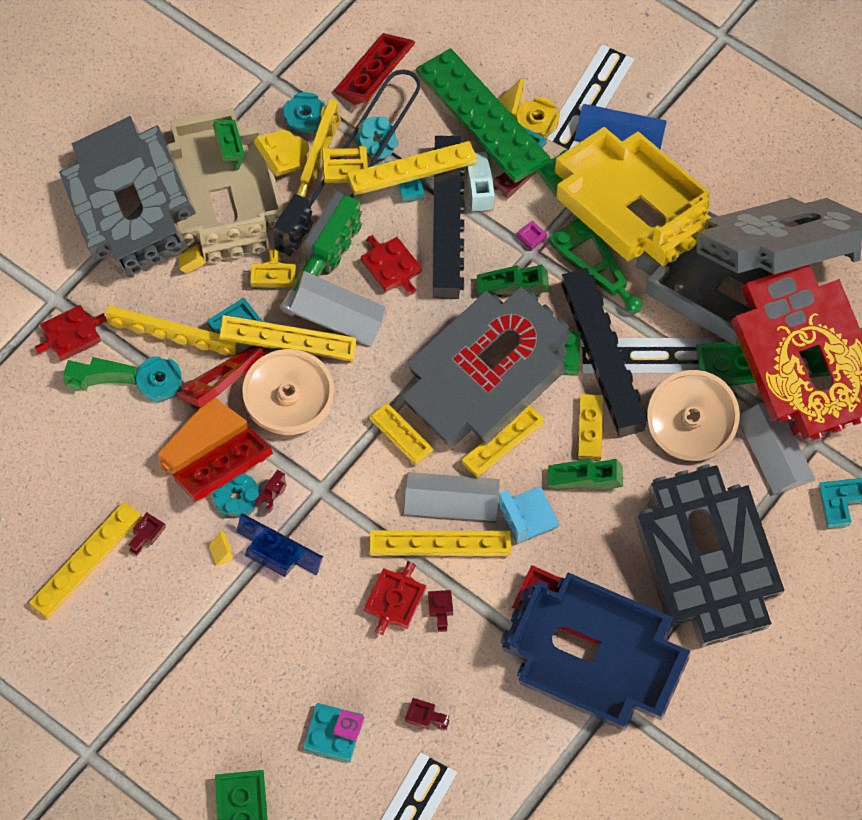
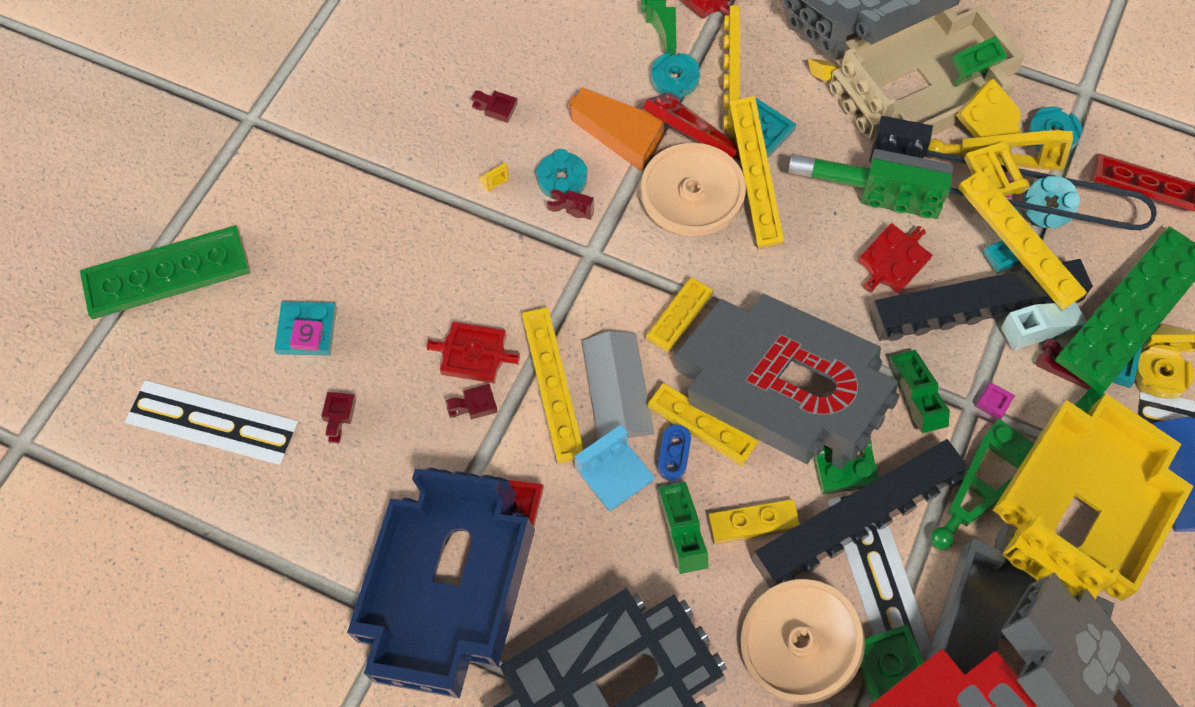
camera: 80 degrees right, 0 degrees up
(85, 560) = (455, 64): yellow plate -> none
(222, 464) = (588, 150): red plate -> none
(273, 273) = (837, 144): yellow plate -> none
(275, 549) = (500, 221): clear blue bracket -> none
(337, 308) = (812, 211): light grey slope -> none
(523, 467) = (674, 454): none -> blue plate

